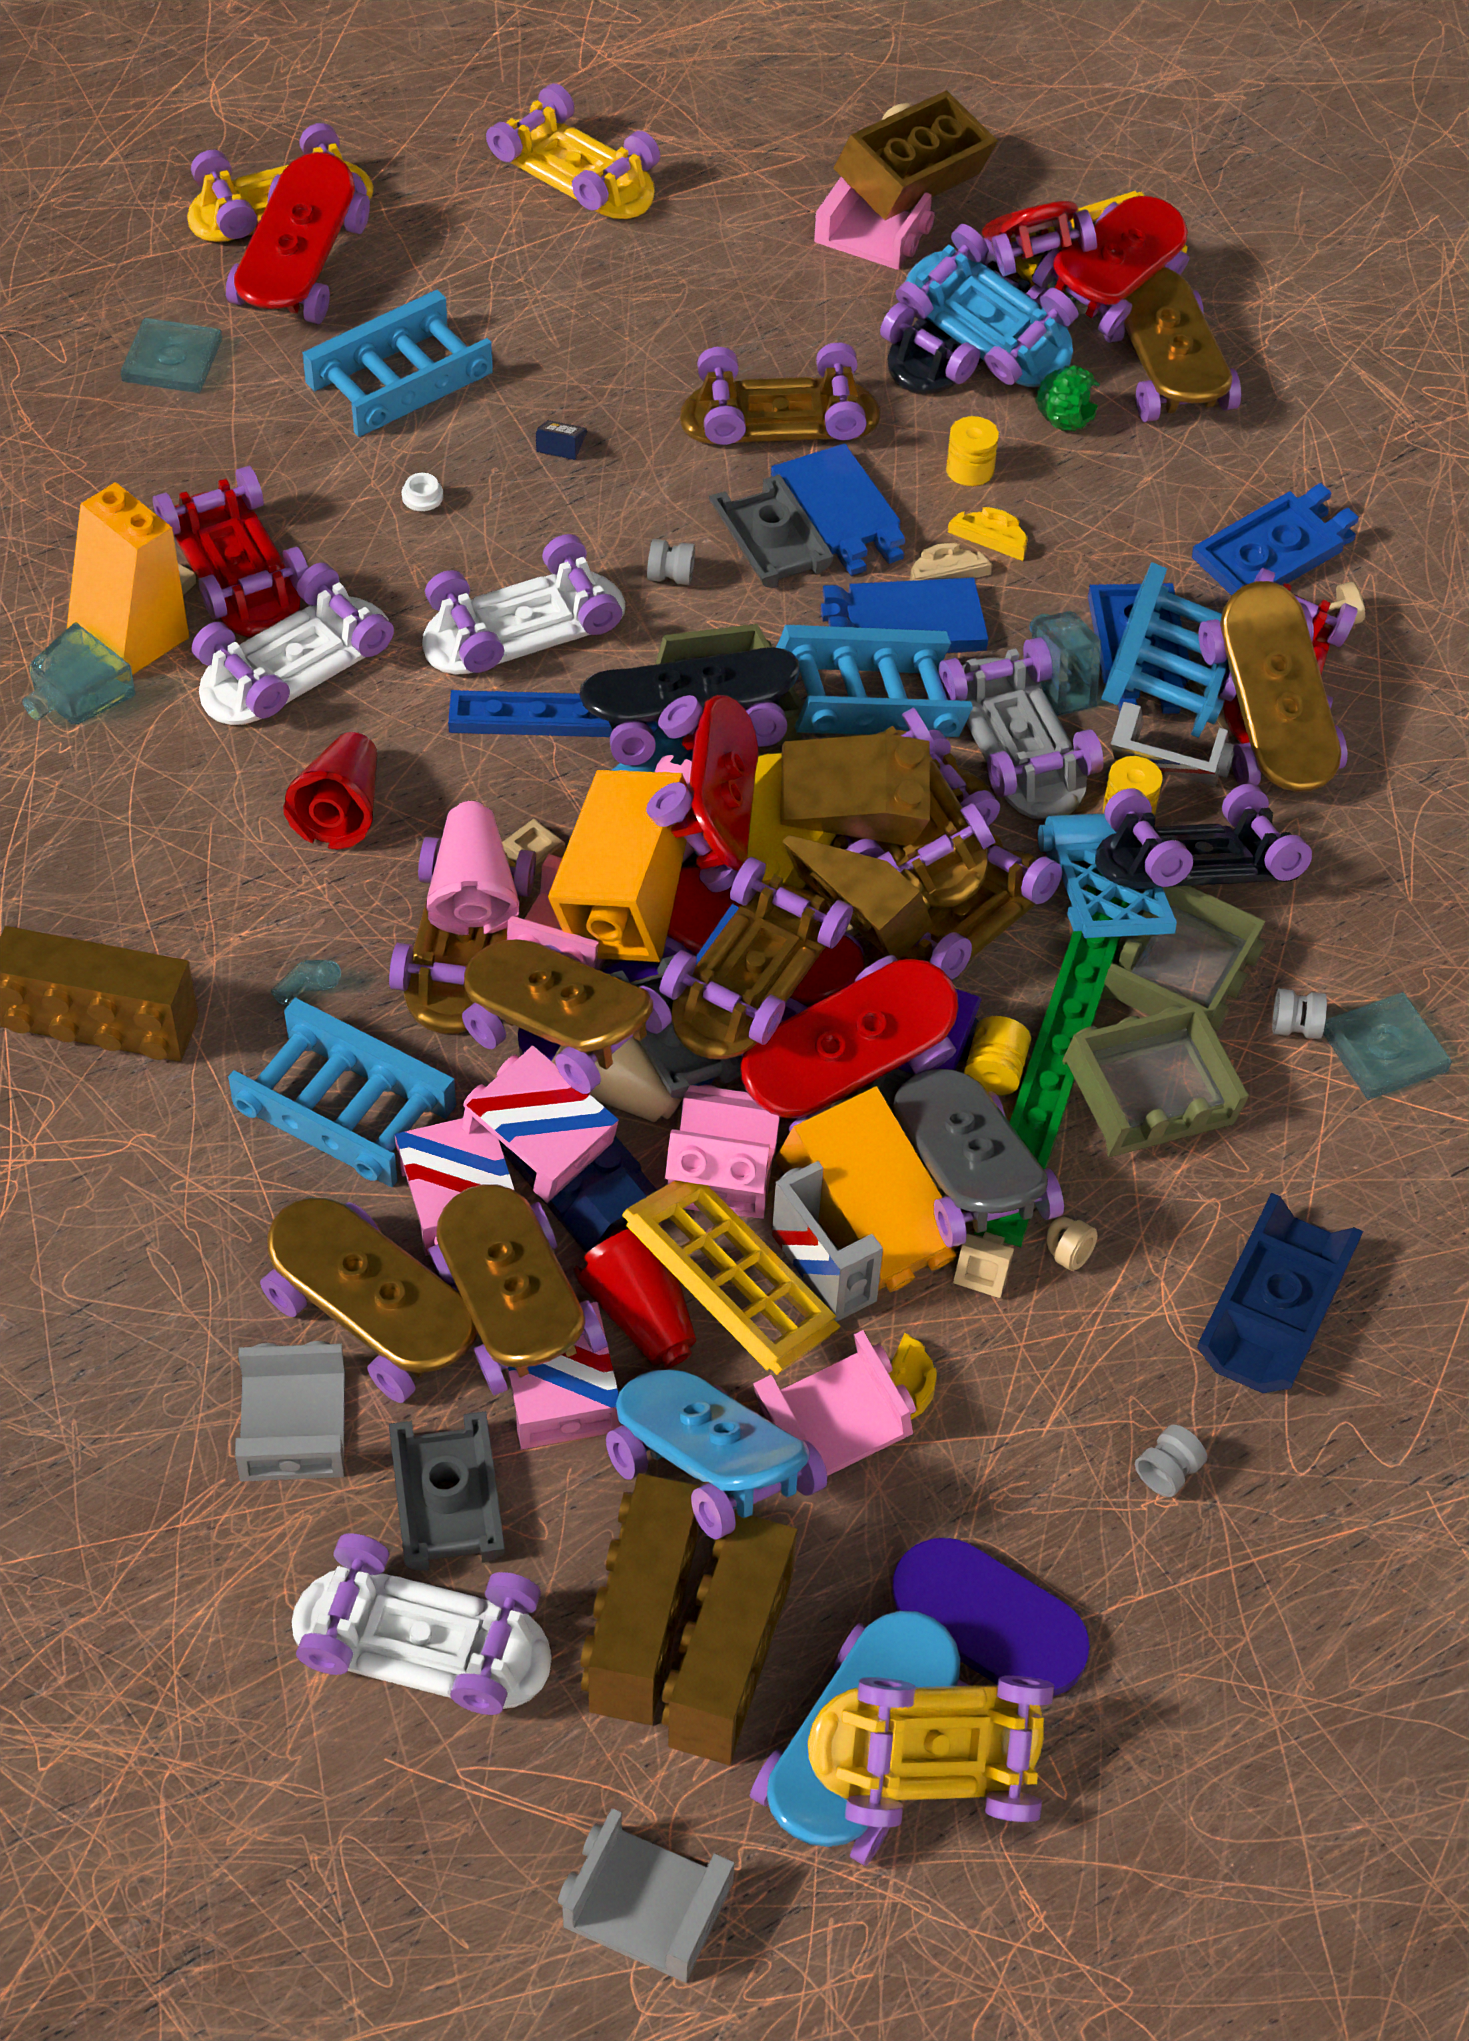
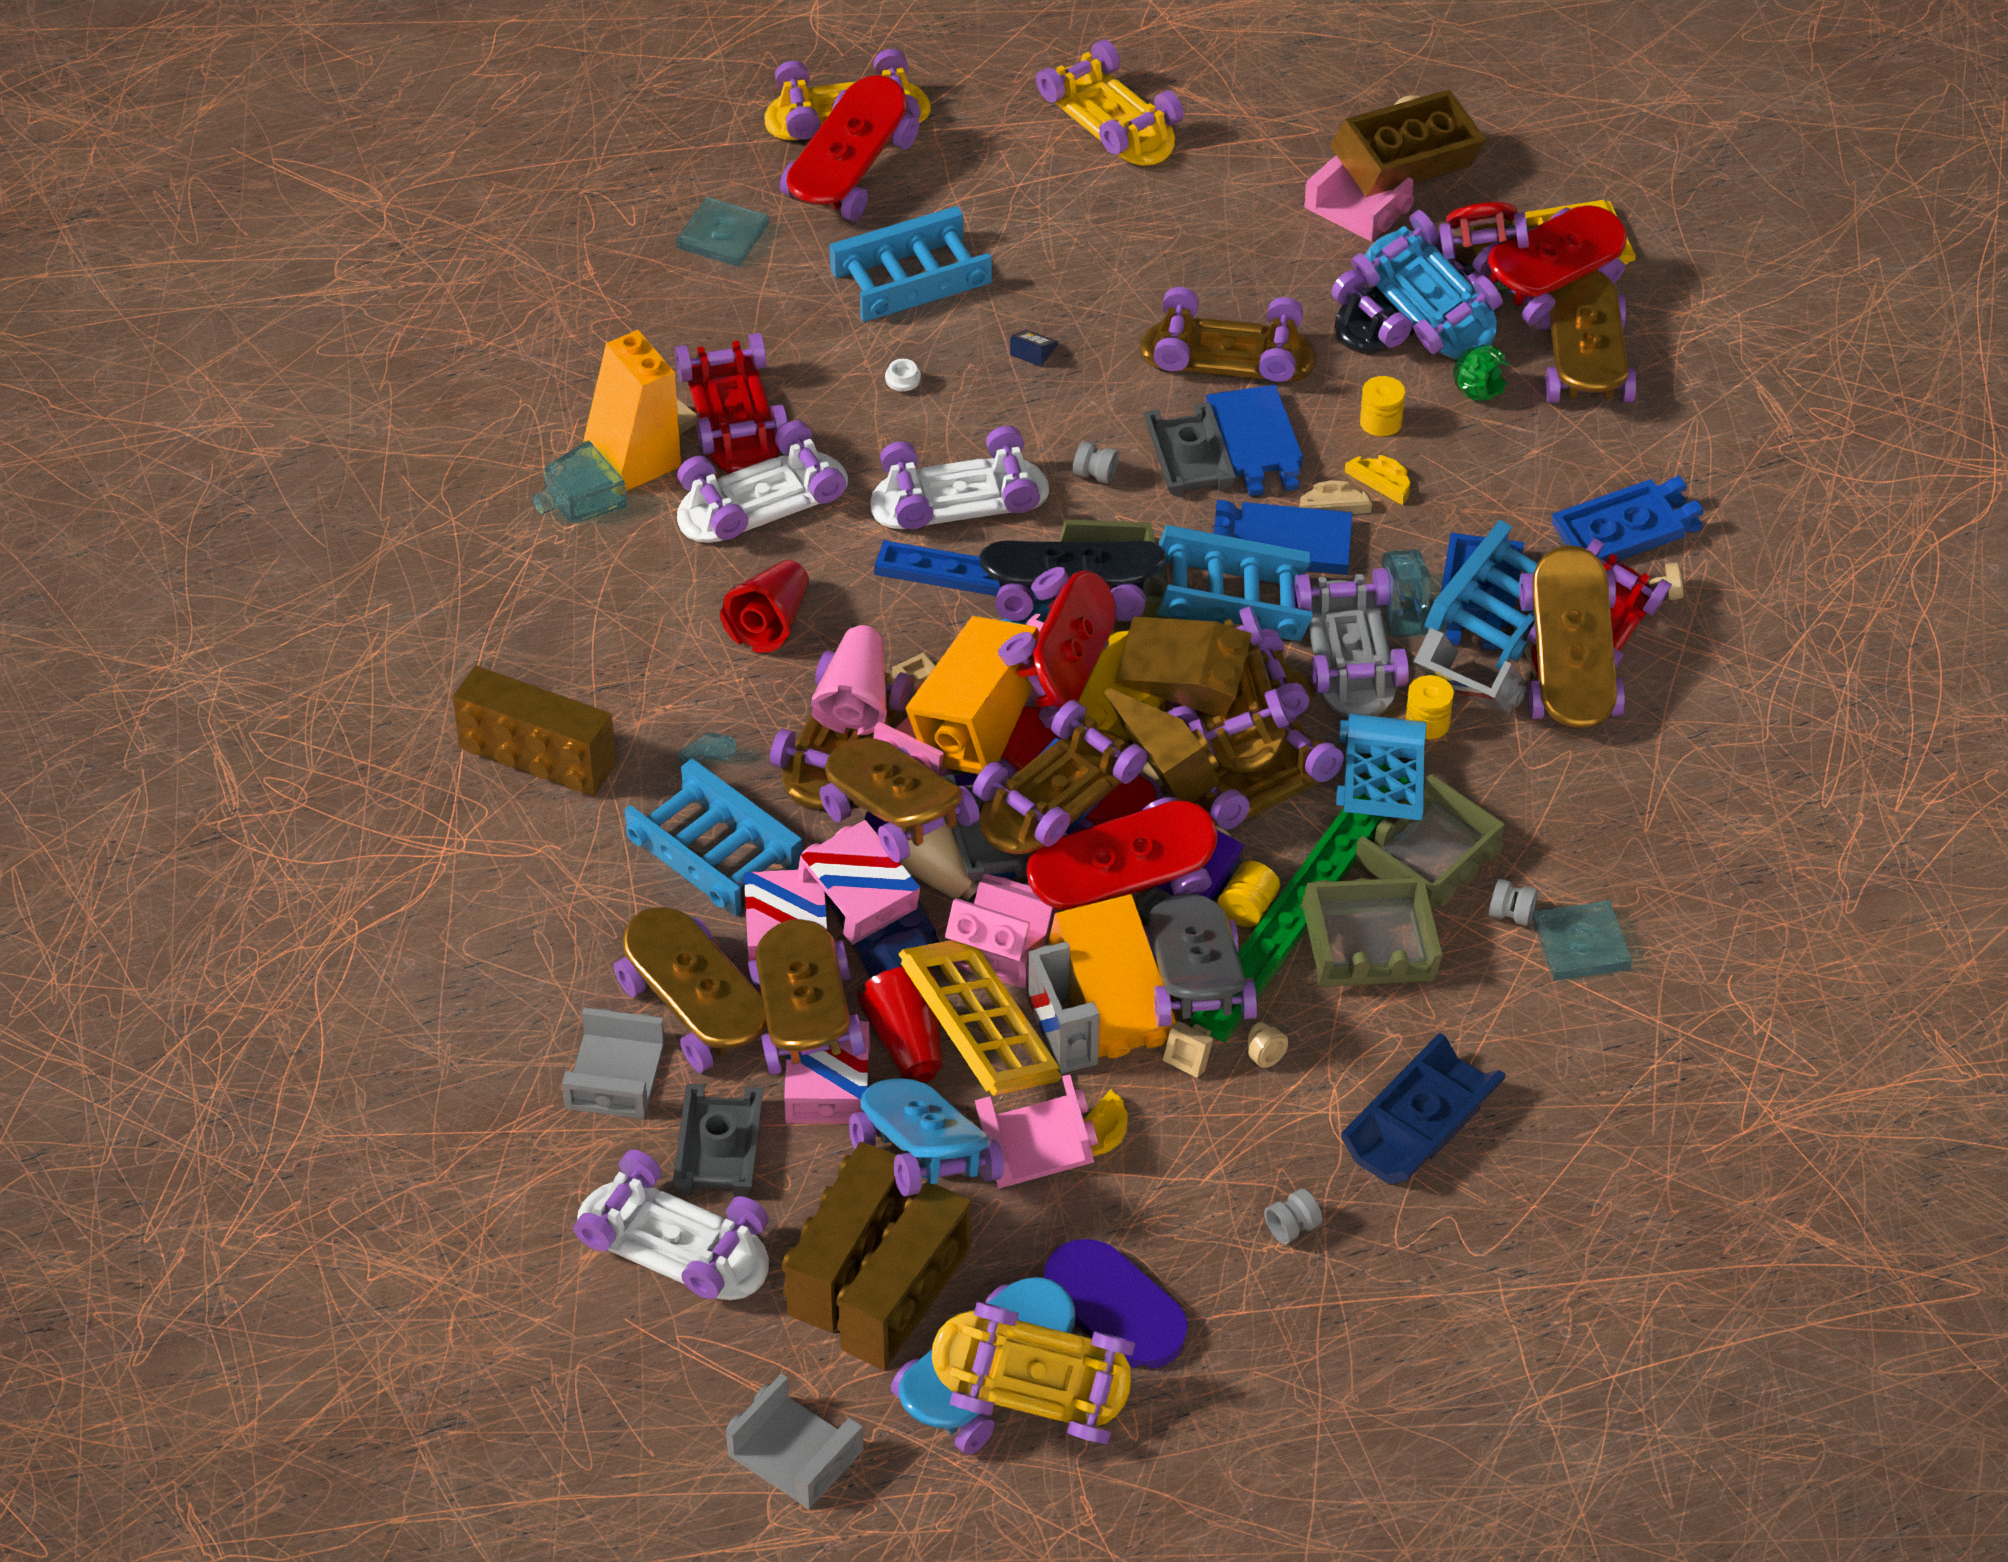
camera: 15 degrees right, 5 degrees down
(1201, 853) = (1466, 762): piece -> none

